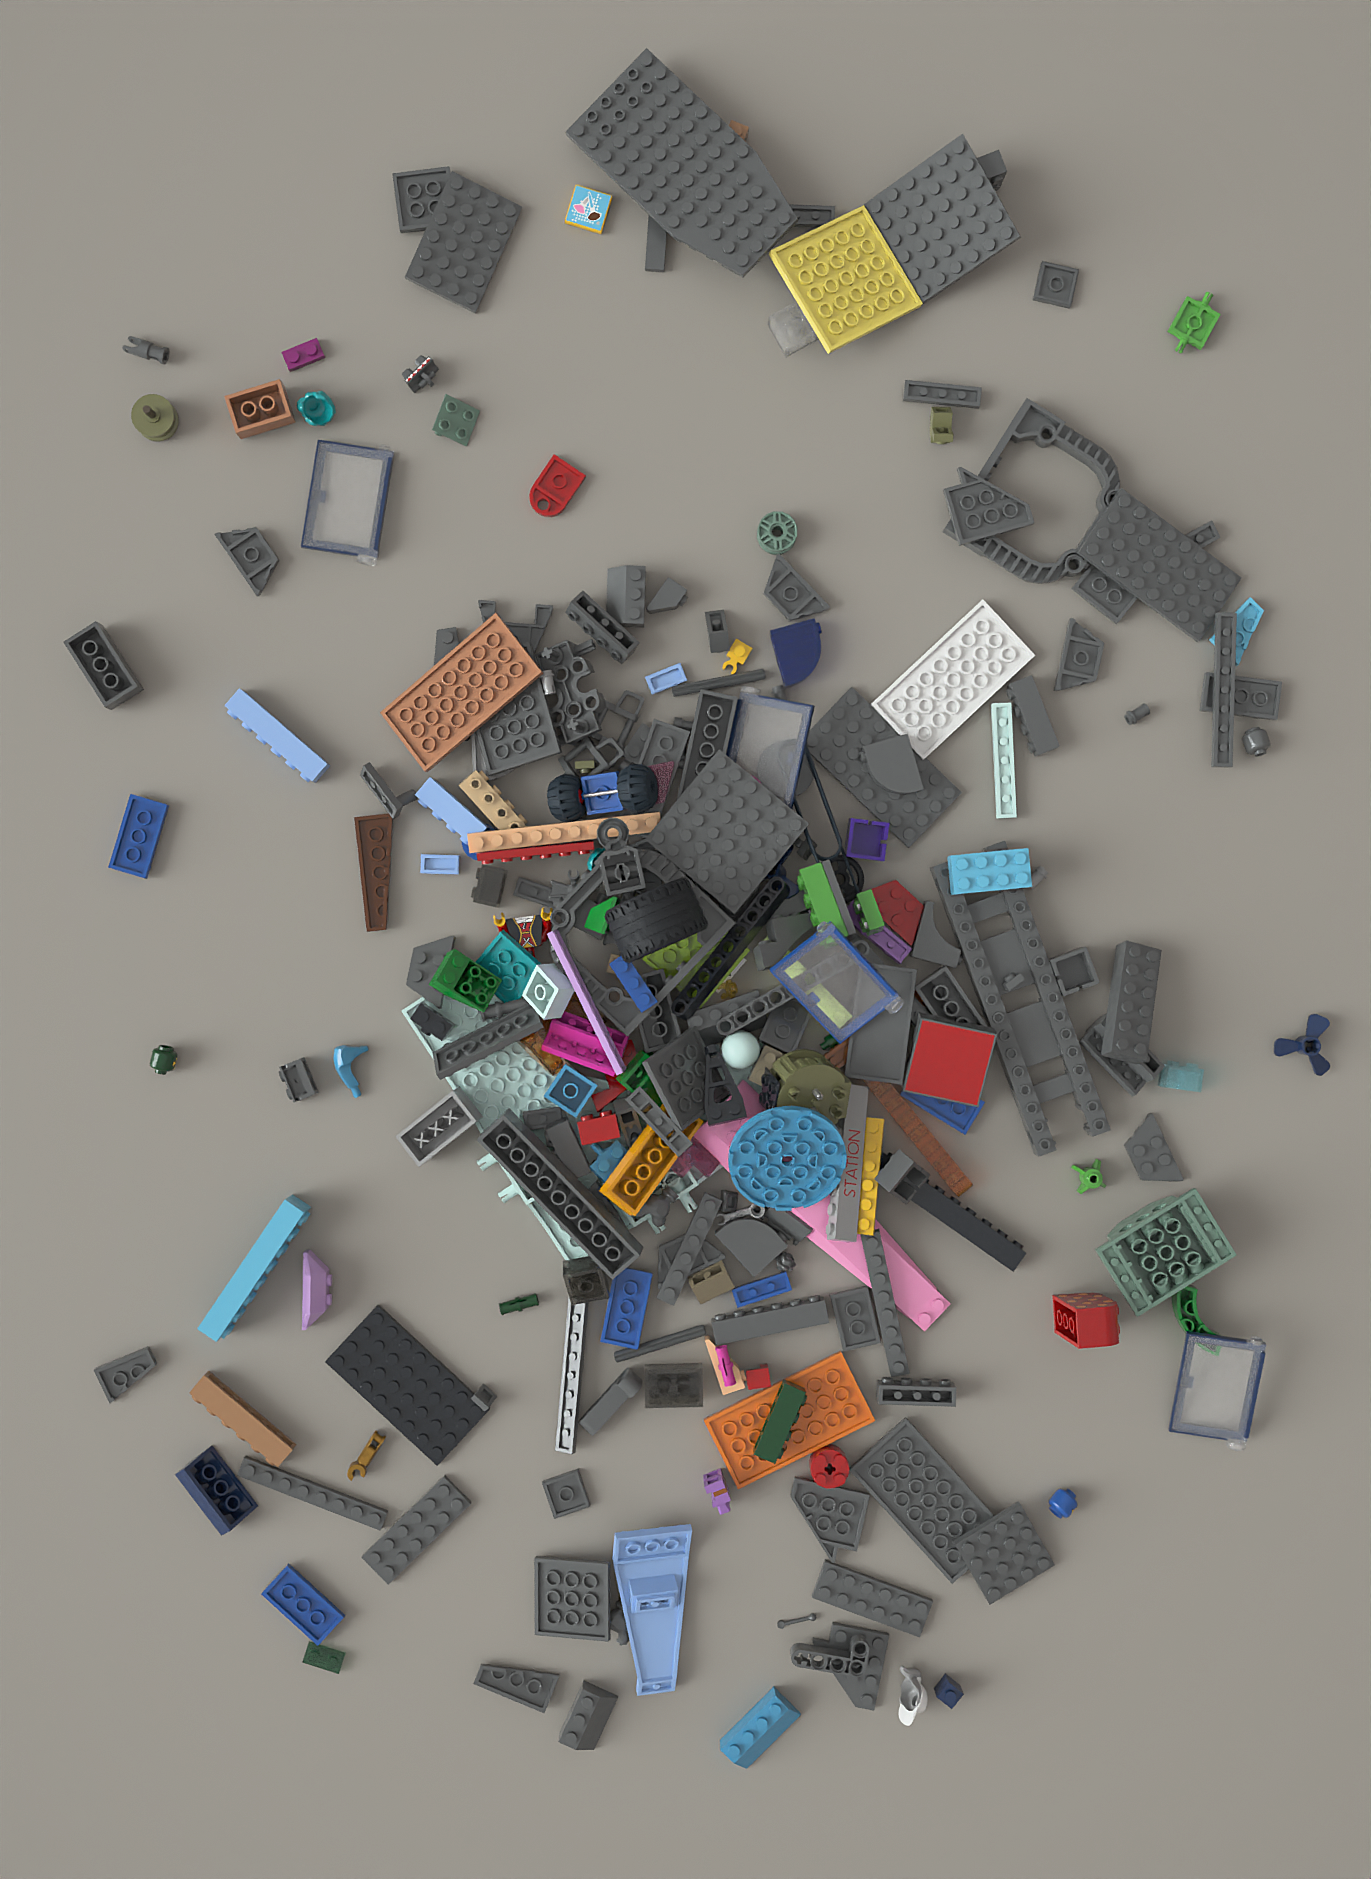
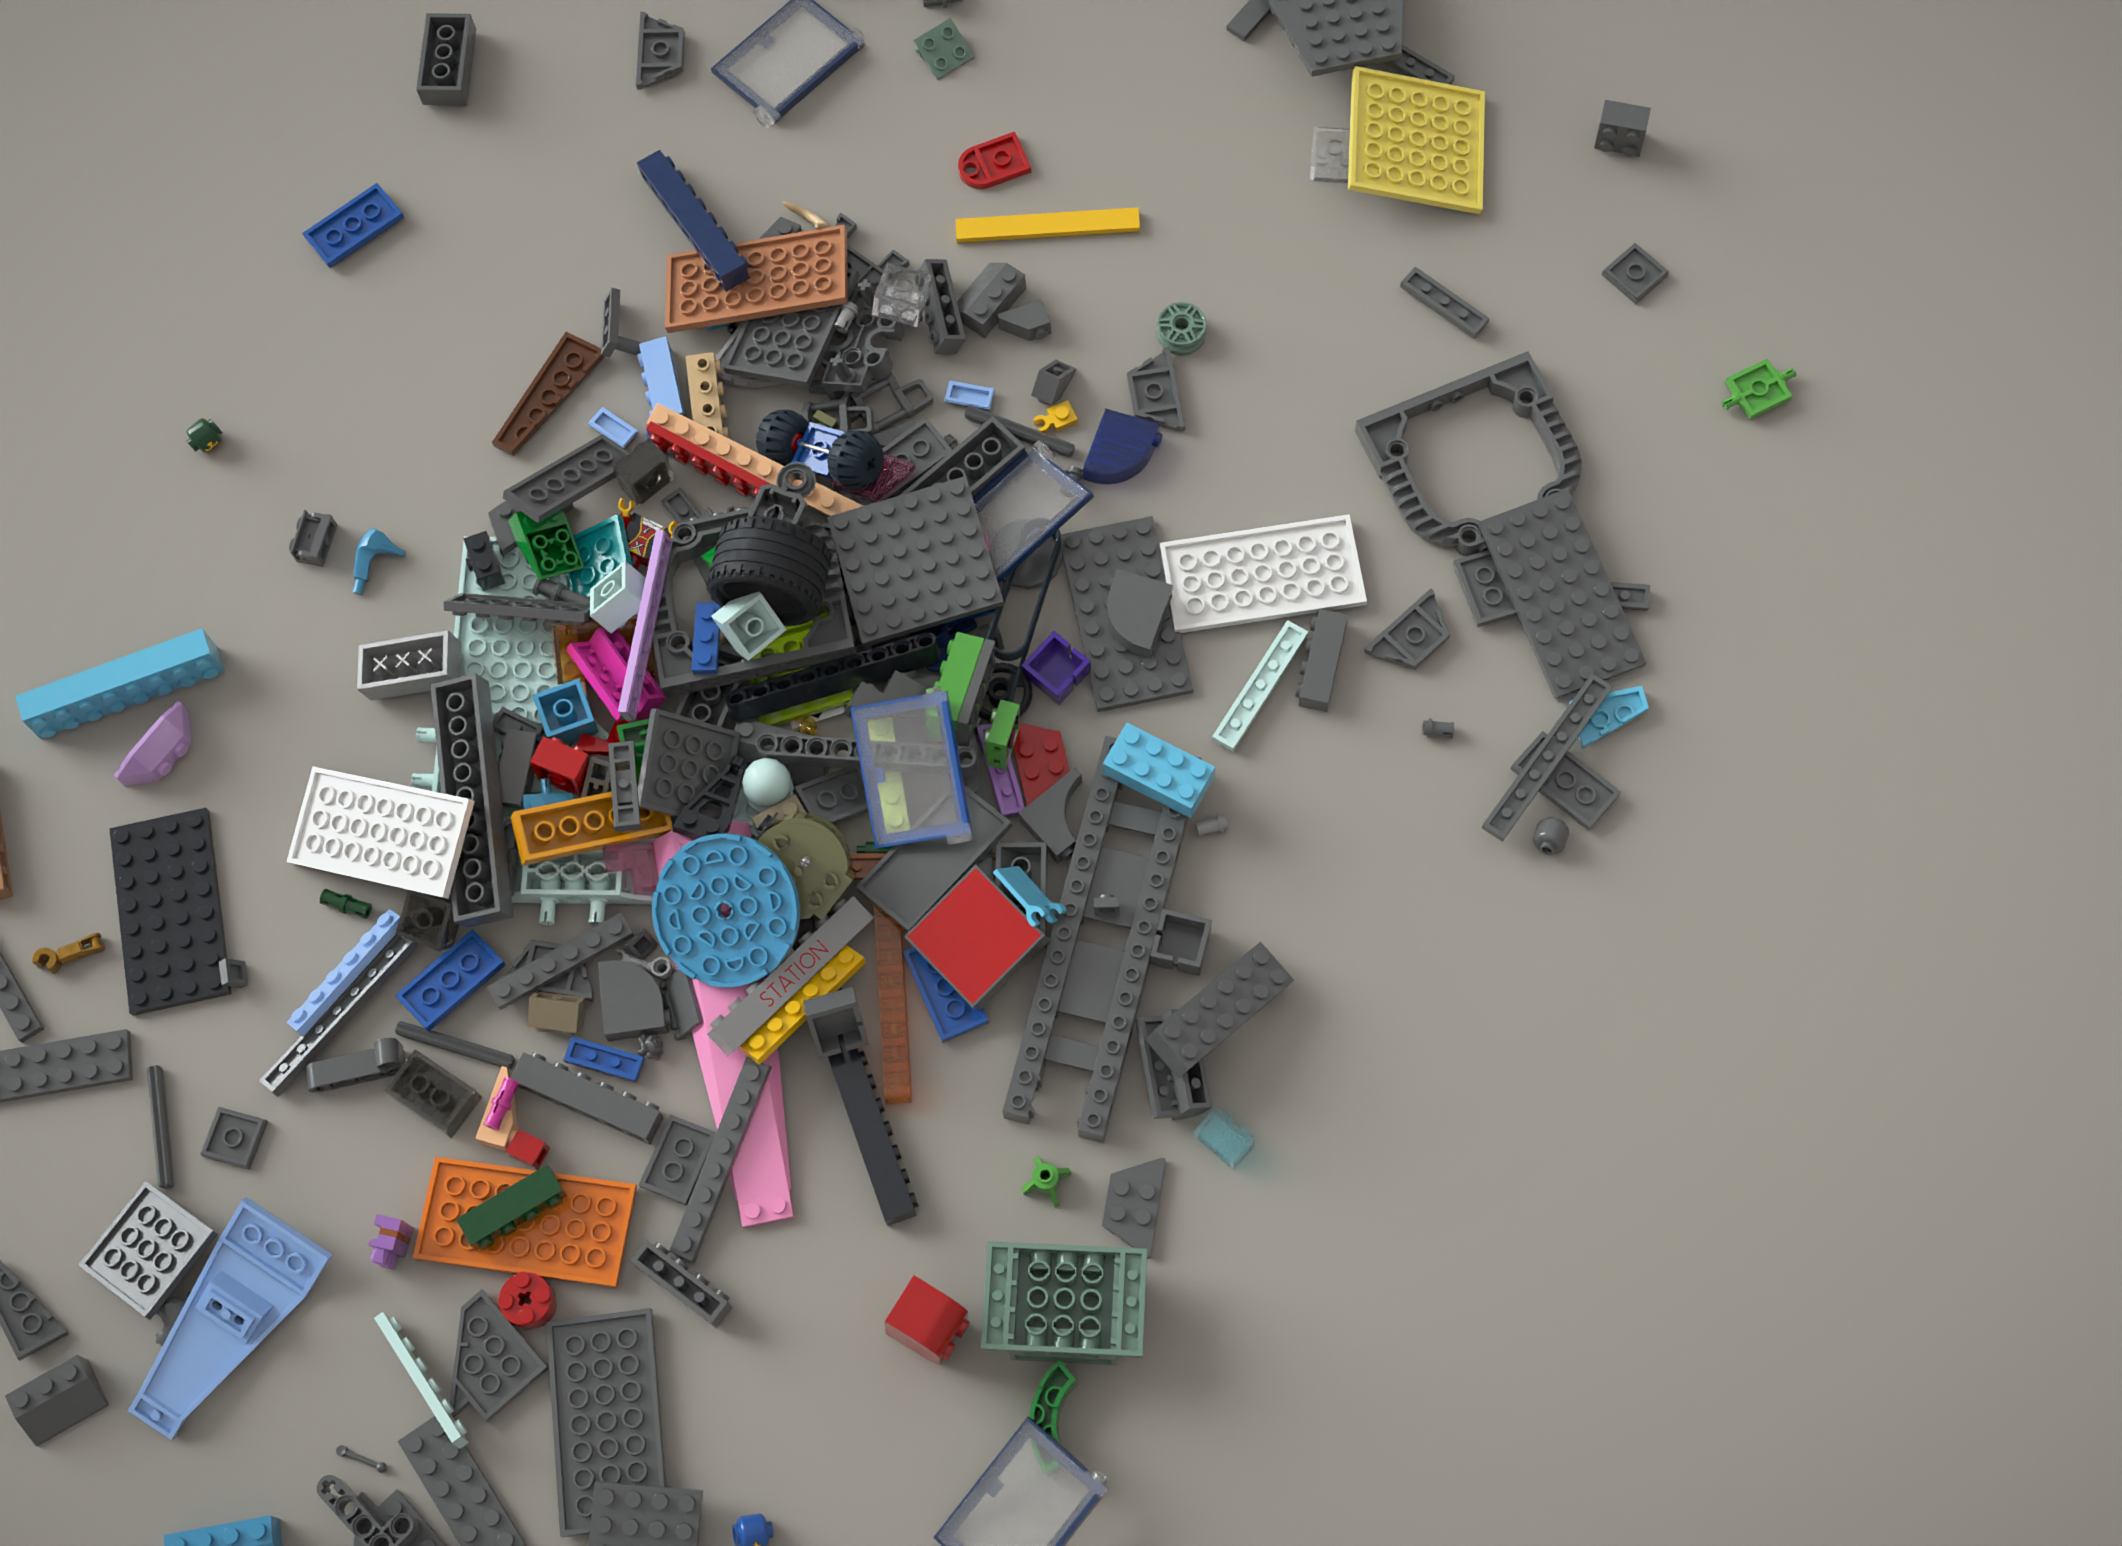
camera: 40 degrees right, 20 degrees down
(277, 736) = (554, 217): light blue brick -> none
(382, 677) = (693, 220): none -> dark blue brick
(448, 927) = (566, 479): none -> dark grey plate
(458, 615) = (817, 221): none -> tan animal
(509, 1514) = (160, 1127): none -> dark grey axle
(515, 1252) = (381, 832): none -> white plate
(555, 1347) = (345, 973): none -> light blue plate
(580, 643) = (901, 295): none -> clear brick
(627, 512) = (1047, 225): none -> yellow tile
(659, 1206) = (558, 882): dark grey animal -> none
(663, 963) = (748, 624): none -> light aqua slope
(808, 1558) = (428, 1387): none -> light aqua plate
(941, 425) = (1421, 328): olive brick -> none
(942, 219) = (1552, 141): dark grey plate -> none
(966, 1013) = (1029, 895): none -> medium azure flag
(983, 509) = (1407, 424): dark grey wing -> none
(1315, 1027) = (1368, 1185): dark blue piece -> none

